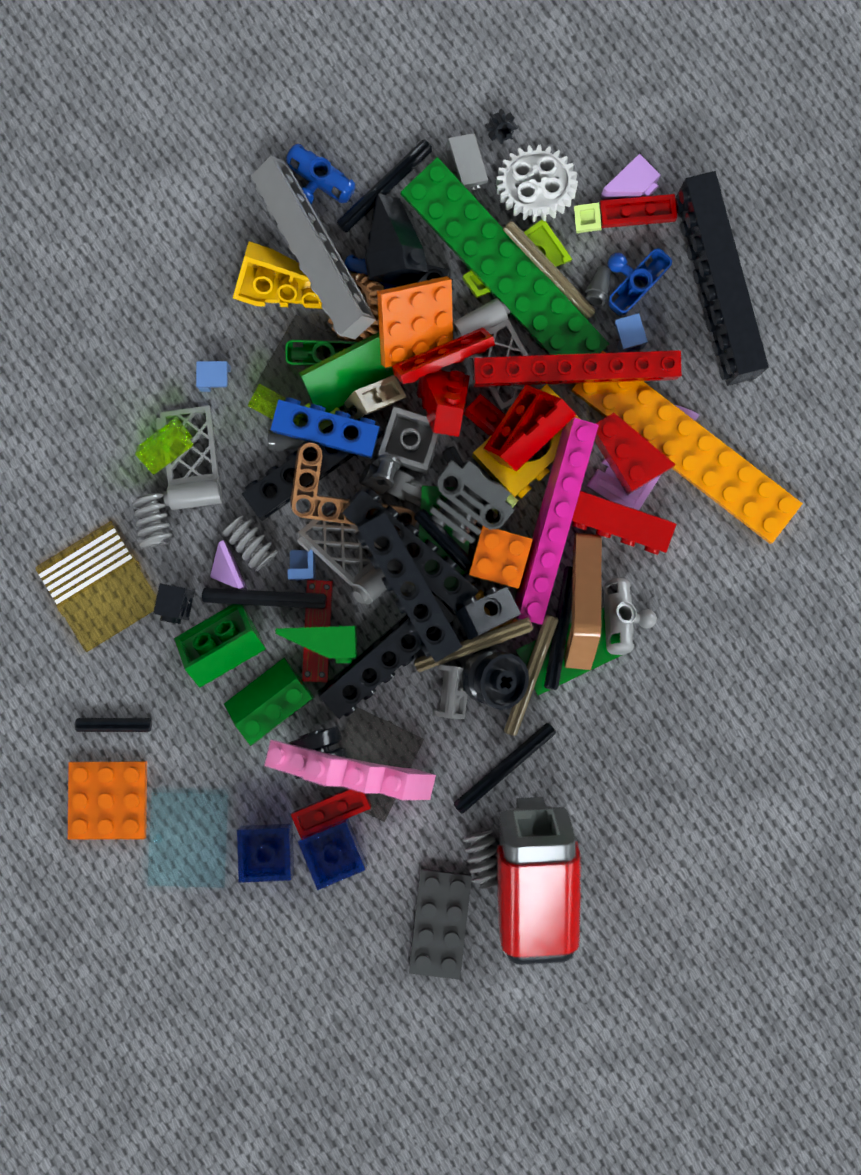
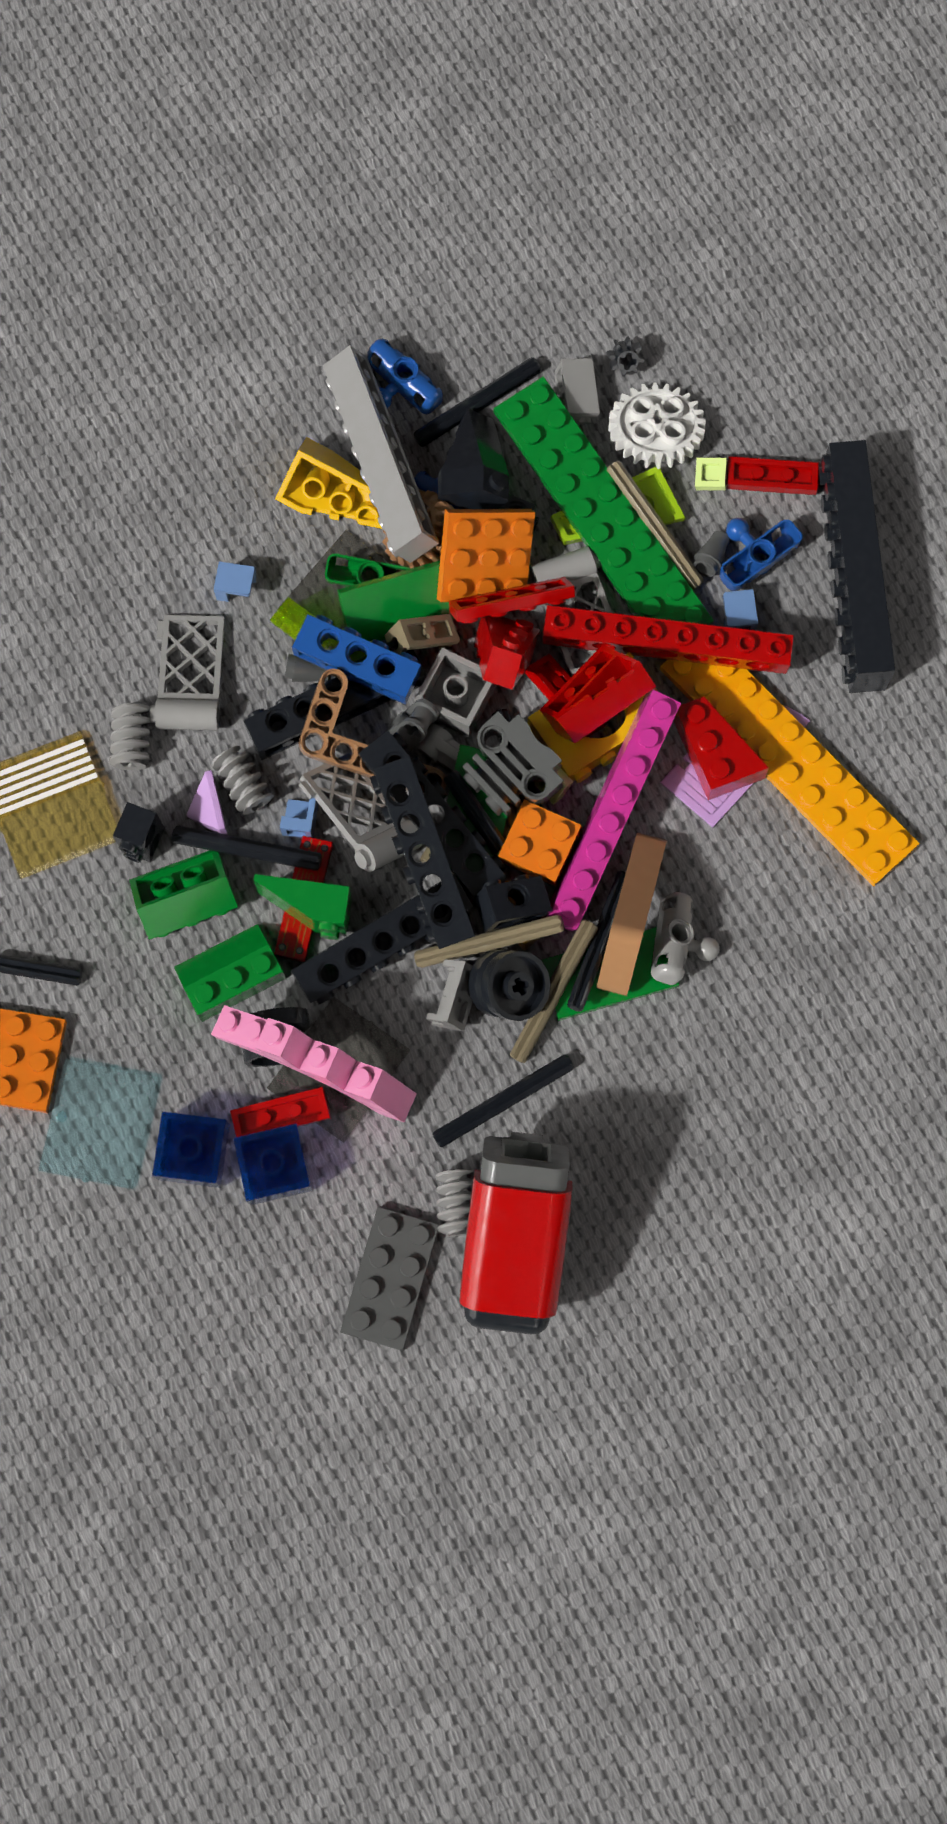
camera: 10 degrees right, 10 degrees down
(164, 446) = (162, 652): clear neon green hinge -> none
(622, 521) = (694, 827): red brick -> none
(633, 181) = (771, 440): lavender slope -> none

